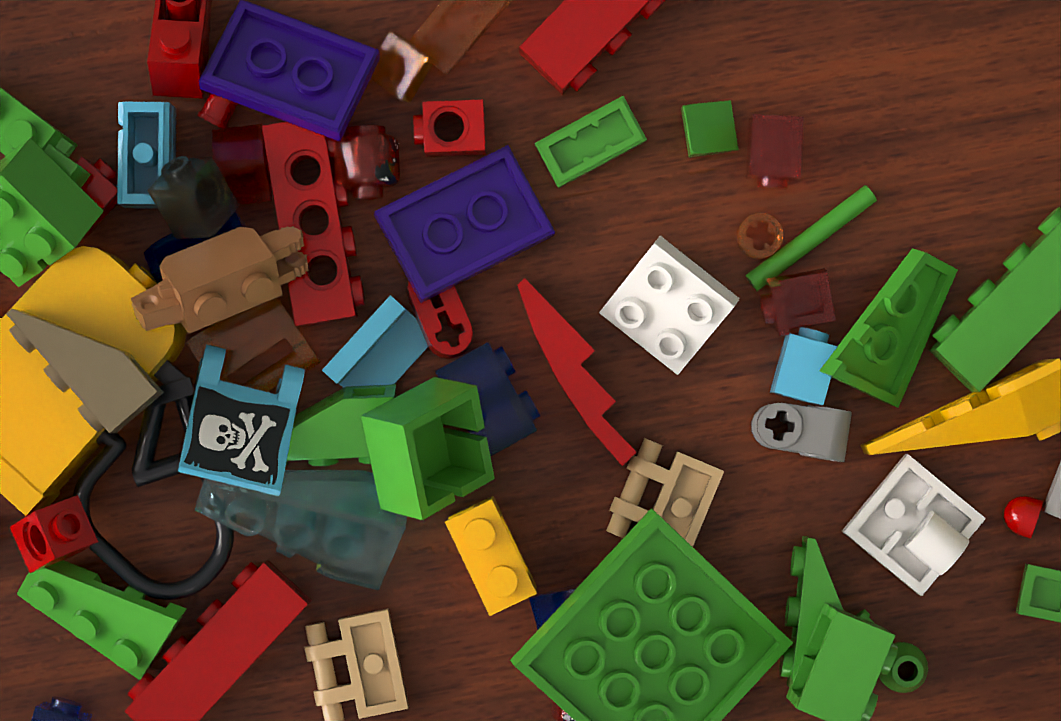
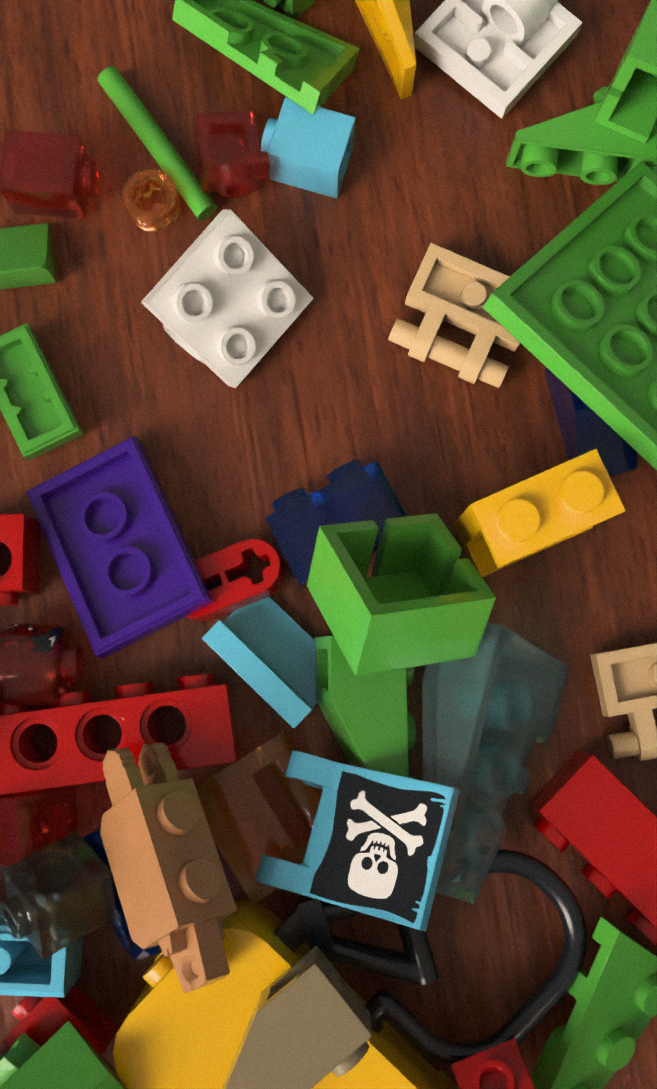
camera: 85 degrees left, 5 degrees down
(565, 353) = (285, 428): red slope -> none
(811, 430) = (383, 151): light grey piece -> none

